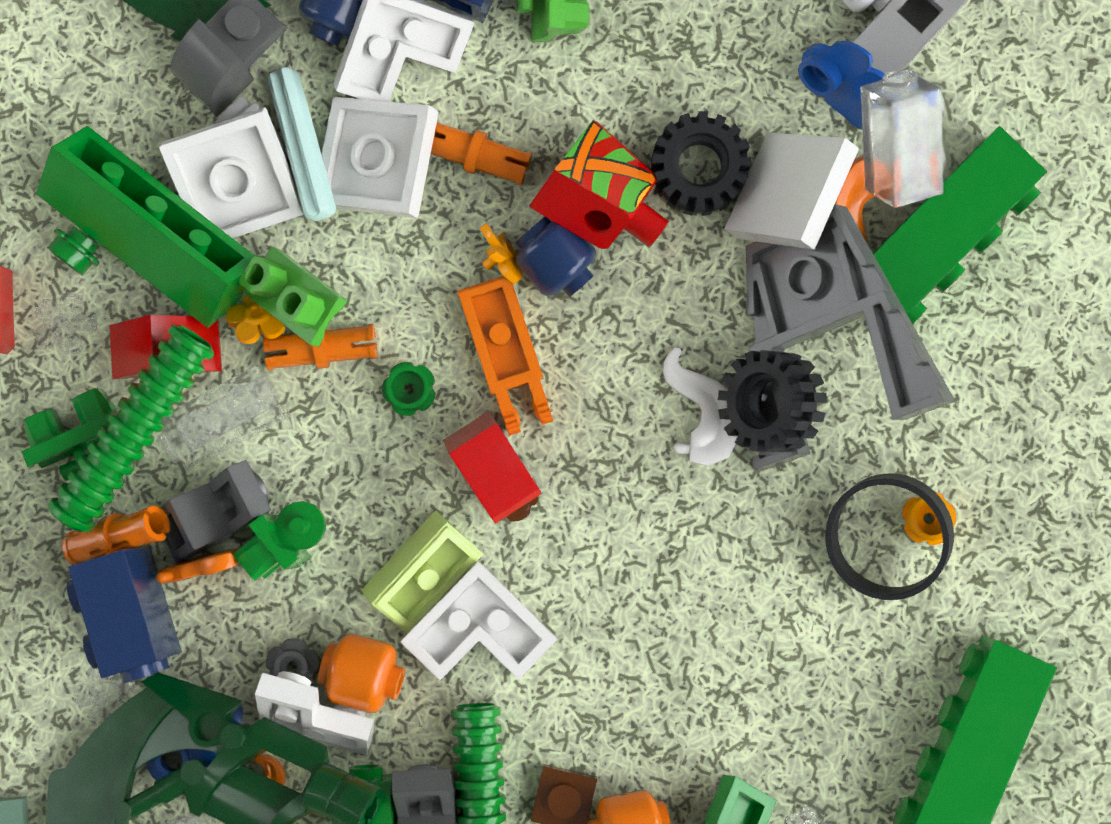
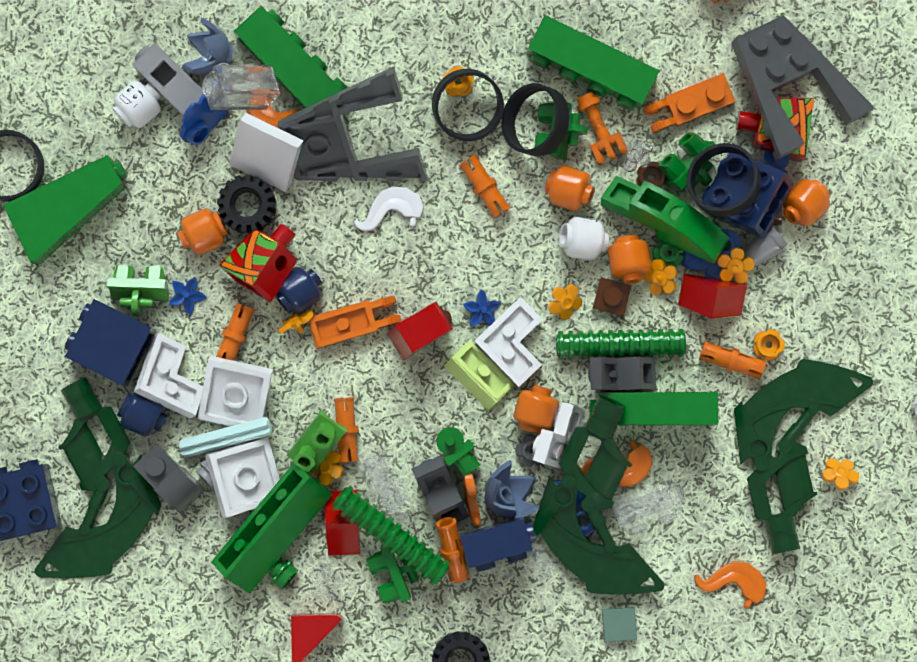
camera: 90 degrees left, 0 degrees up
(214, 626) = (507, 494): none -> sand blue piece
(399, 377) = (366, 372): green plate -> none
(534, 572) = (481, 309): none -> blue plant
(543, 71) = (186, 295): none -> blue plant
(553, 717) = (564, 301): none -> light orange plant
(650, 90) = (202, 231): none -> orange head
(663, 747) = (583, 238): none -> white head
(748, 570) = (485, 186): none -> orange pin
(750, 720) = (569, 188): none -> orange head
(798, 403) = (388, 153): black tyre -> none
(877, 698) = (547, 114): none -> green hips
(883, 613) = (512, 108): none -> black tyre
(900, 748) = (588, 104): none -> orange hinge
(971, 93) = (212, 46): none -> sand blue piece

